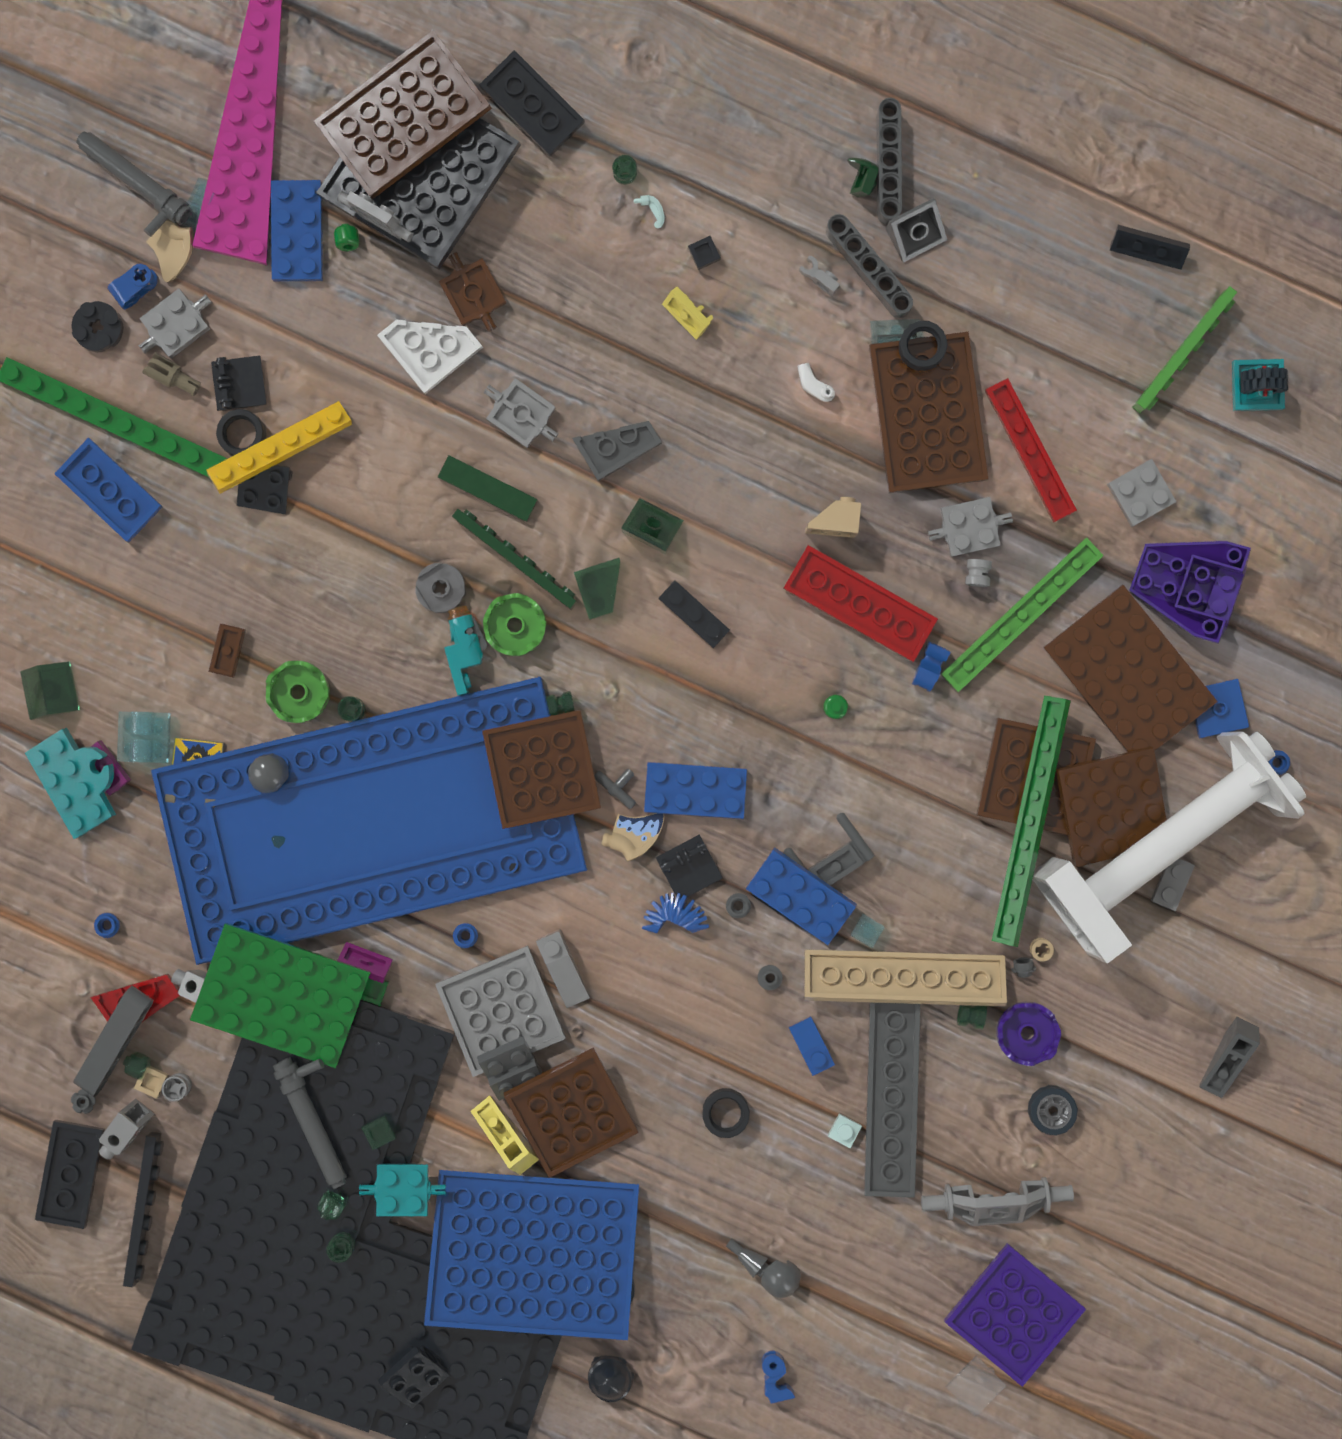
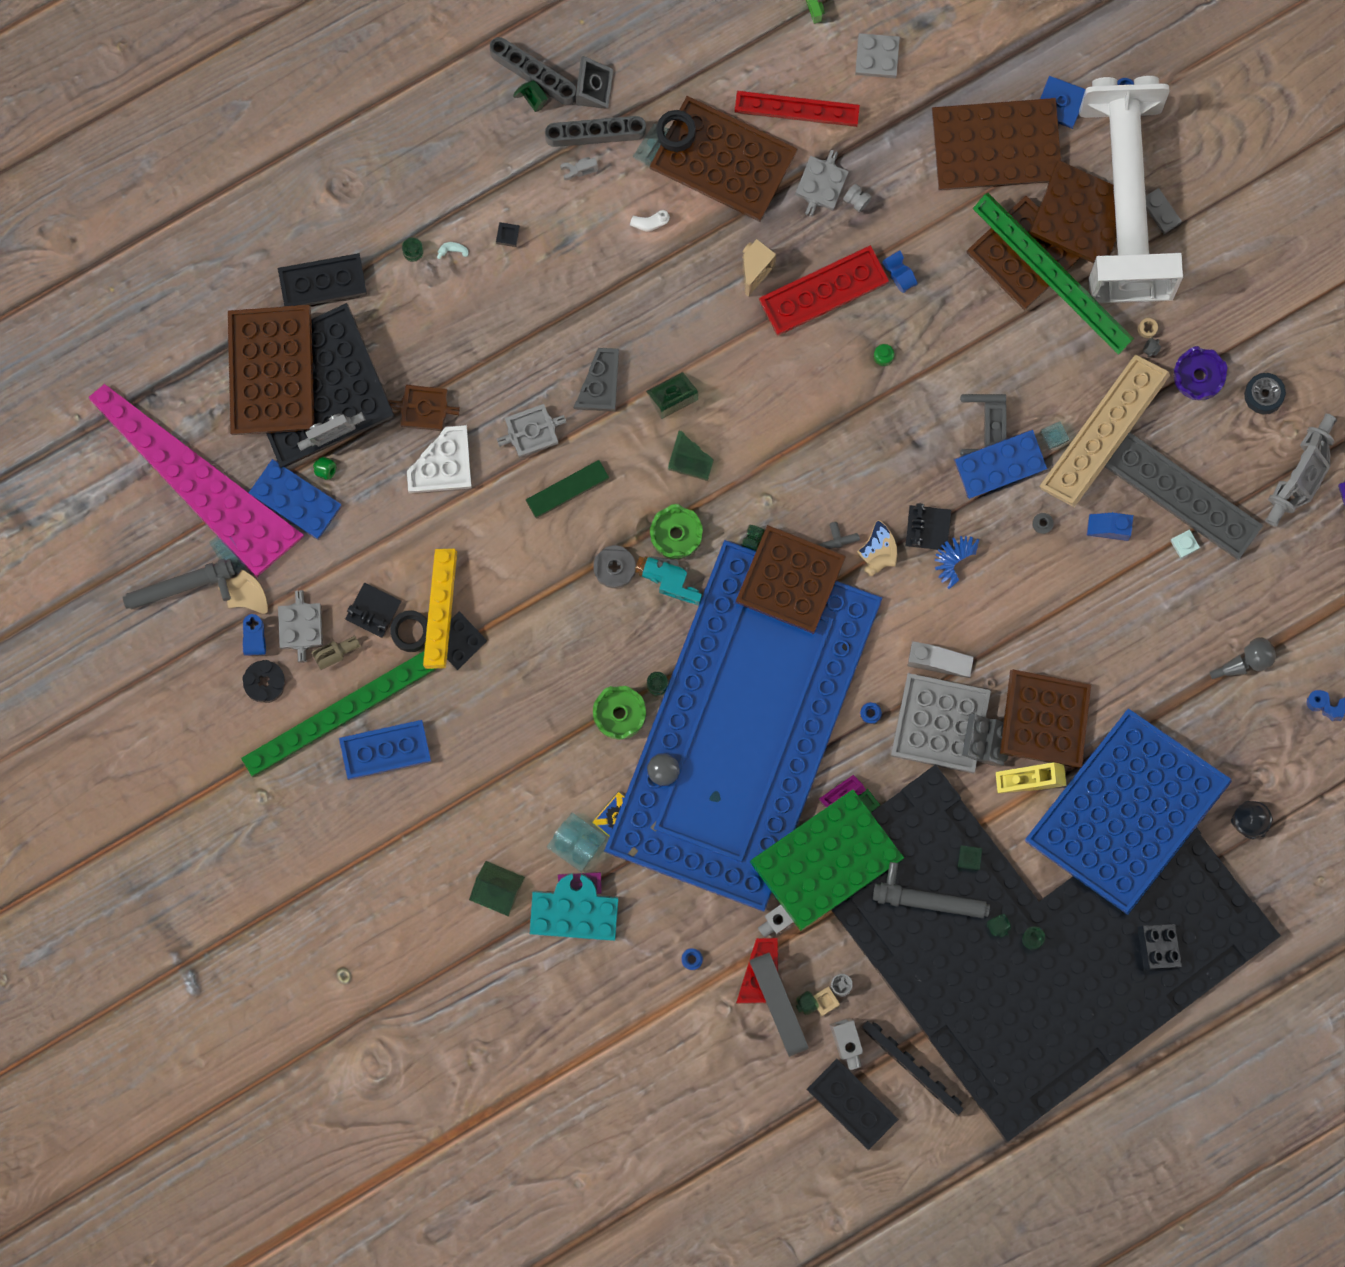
camera: 55 degrees left, 10 degrees down
(78, 1106) = (801, 1060): dark grey plate -> none
(227, 650) = (555, 743): reddish brown plate -> none
(402, 1190) = (1021, 869): teal plate -> none
(507, 551) = (622, 503): dark green plate -> none
(686, 313) = (541, 273): light yellow plate -> none
(694, 614) = (753, 407): black plate -> none
(695, 790) = (877, 487): blue plate -> none
(711, 1125) = (1123, 600): black tyre -> none
(738, 913) = (977, 505): dark grey plate -> none
(974, 1015) = (1162, 403): clear green wheel -> none
(1022, 614) = (906, 188): bright green plate -> none
(1192, 583) = (962, 62): dark purple wedge -> none
(1231, 1056) = (1307, 250): dark grey slope -> none

